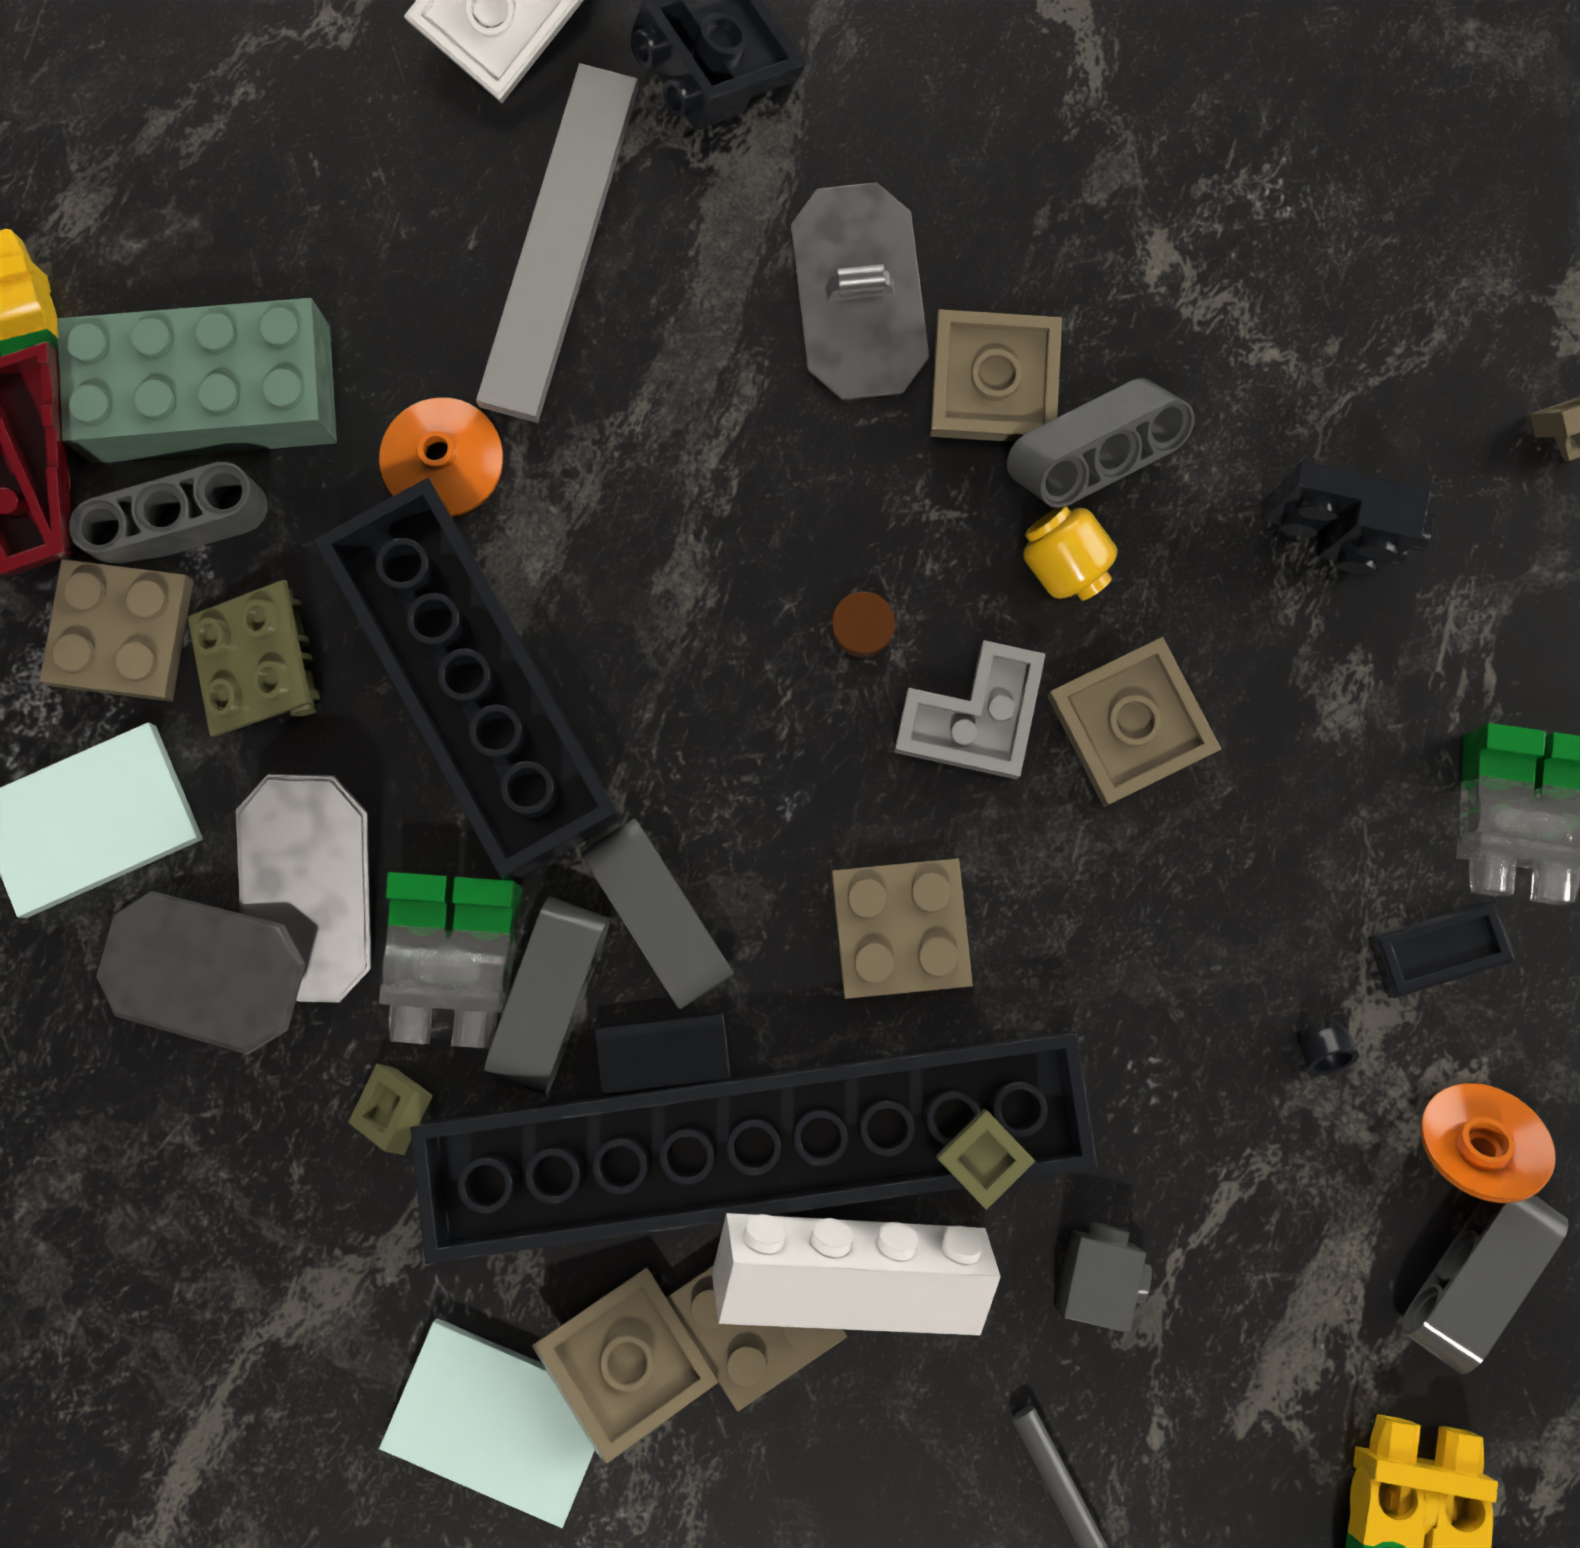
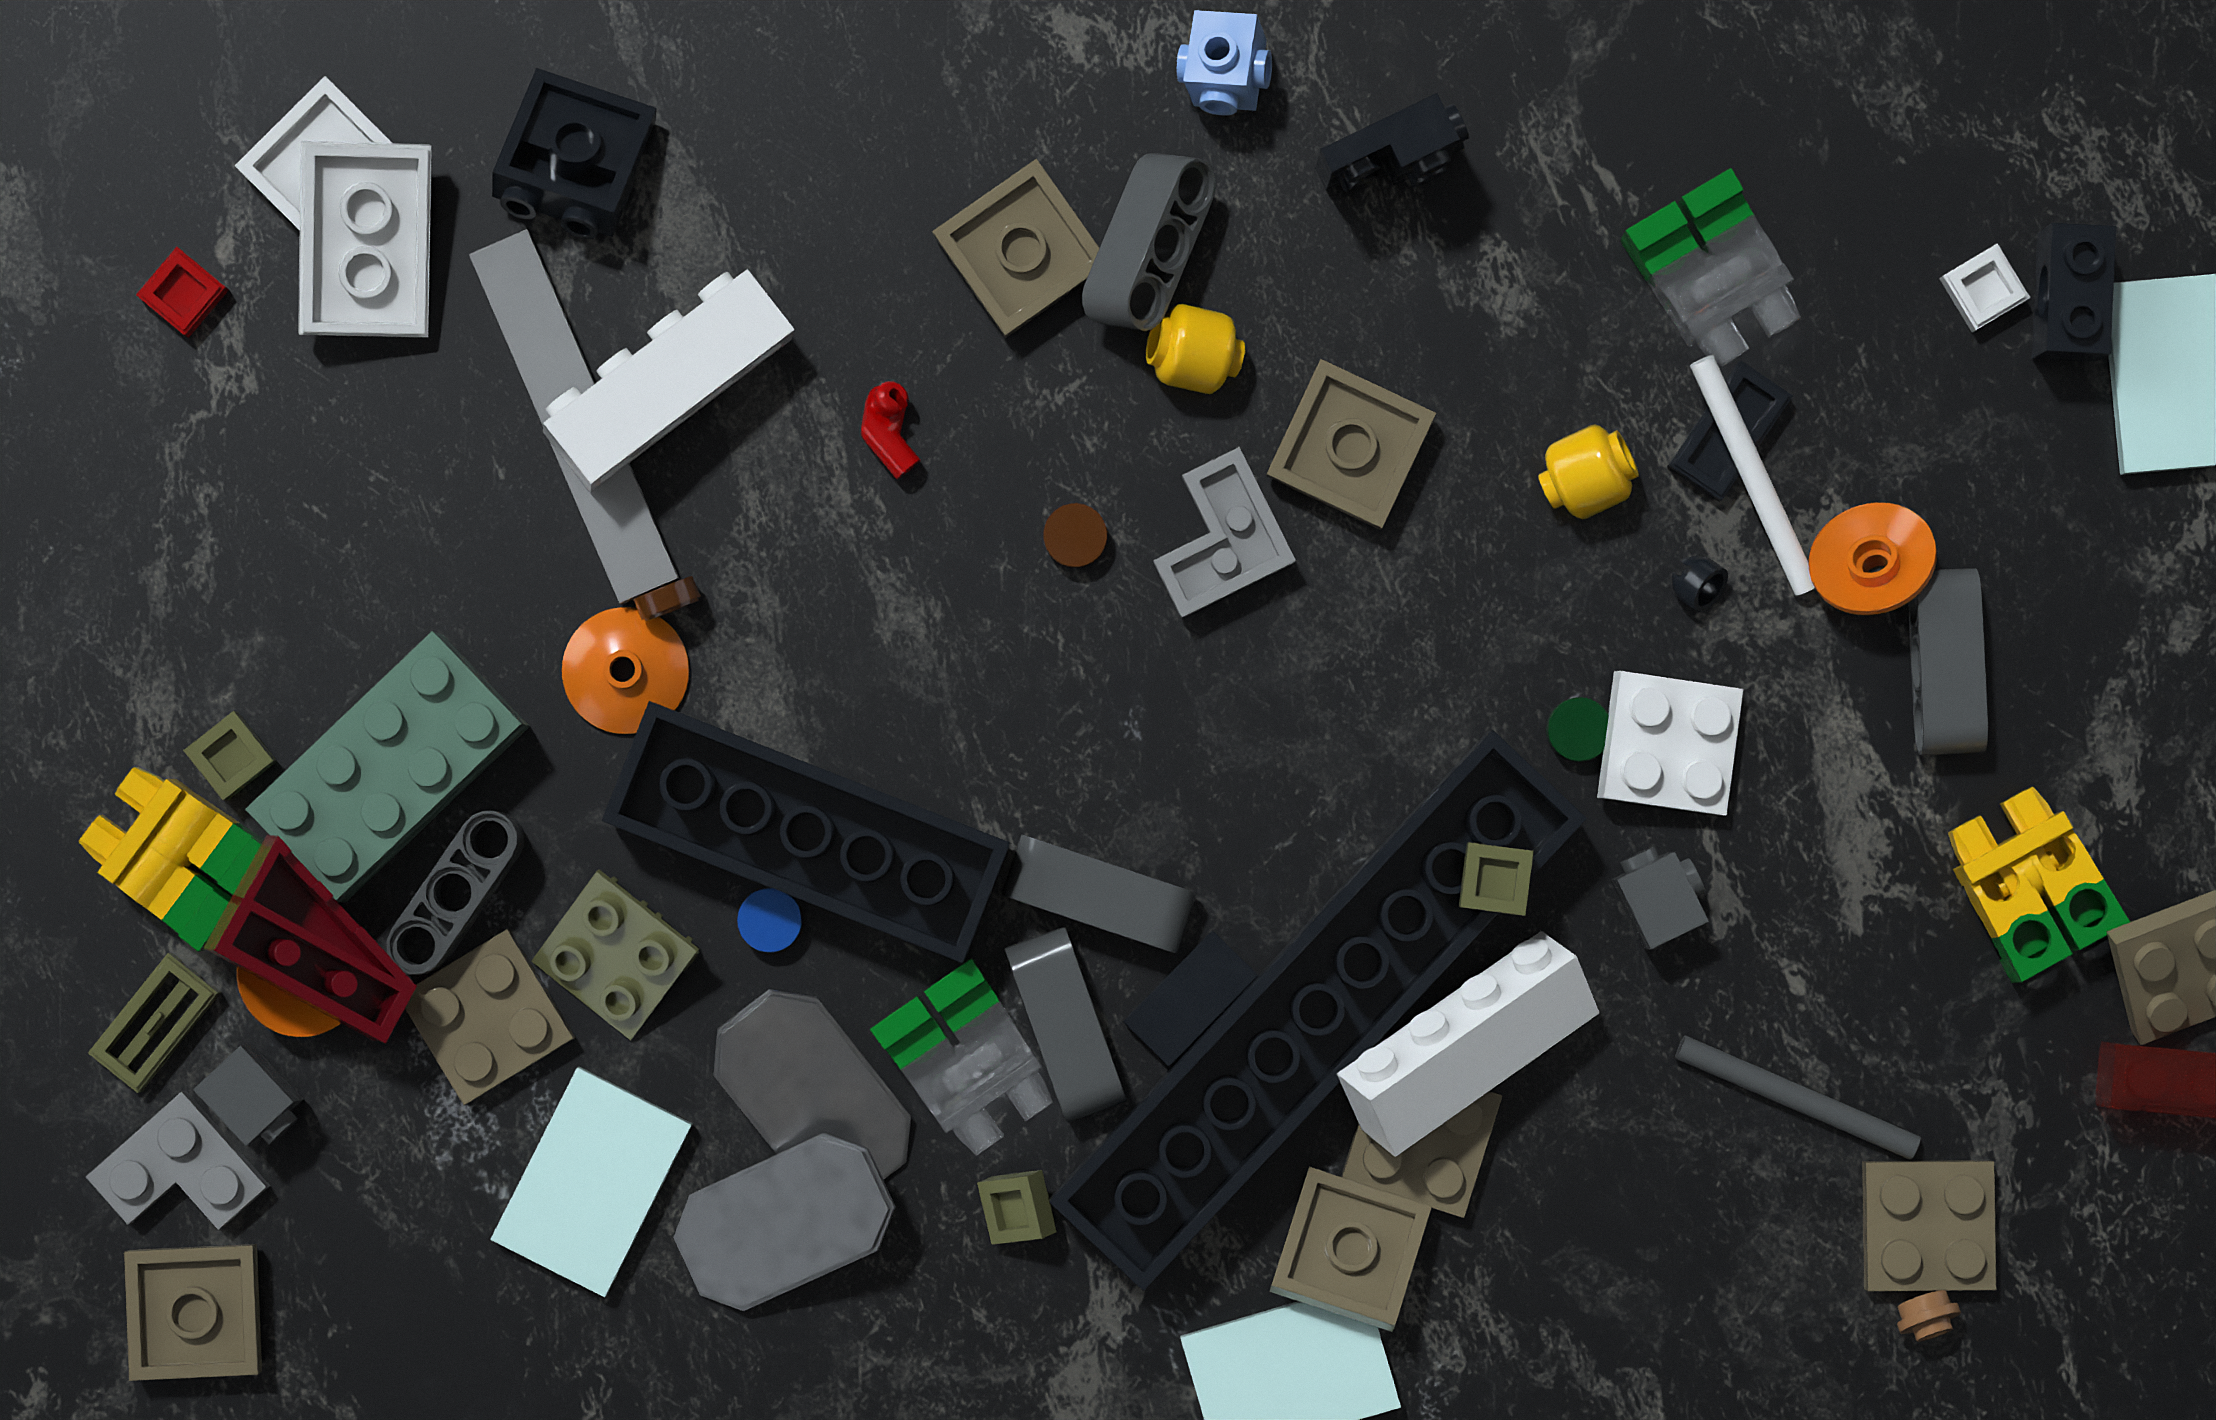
camera: 35 degrees left, 5 degrees up
(93, 282) = (230, 755): none -> olive plate
(388, 730) = (770, 920): none -> blue tile
(513, 423) = (667, 599): none -> reddish brown tile
(647, 258) = (666, 379): none -> white brick
(783, 428) = (883, 425): none -> red arm
(859, 291) = (851, 259): flat silver shield -> none
(901, 928) = (1297, 753): dark tan plate -> none
(1139, 1088) = (1577, 729): none -> dark green tile
(1205, 1158) = (1670, 743): none -> white plate
(1266, 355) = (1225, 62): none -> light blue brick
(1307, 890) = (1588, 471): none -> yellow head
(1439, 997) = (1753, 473): none -> white bar

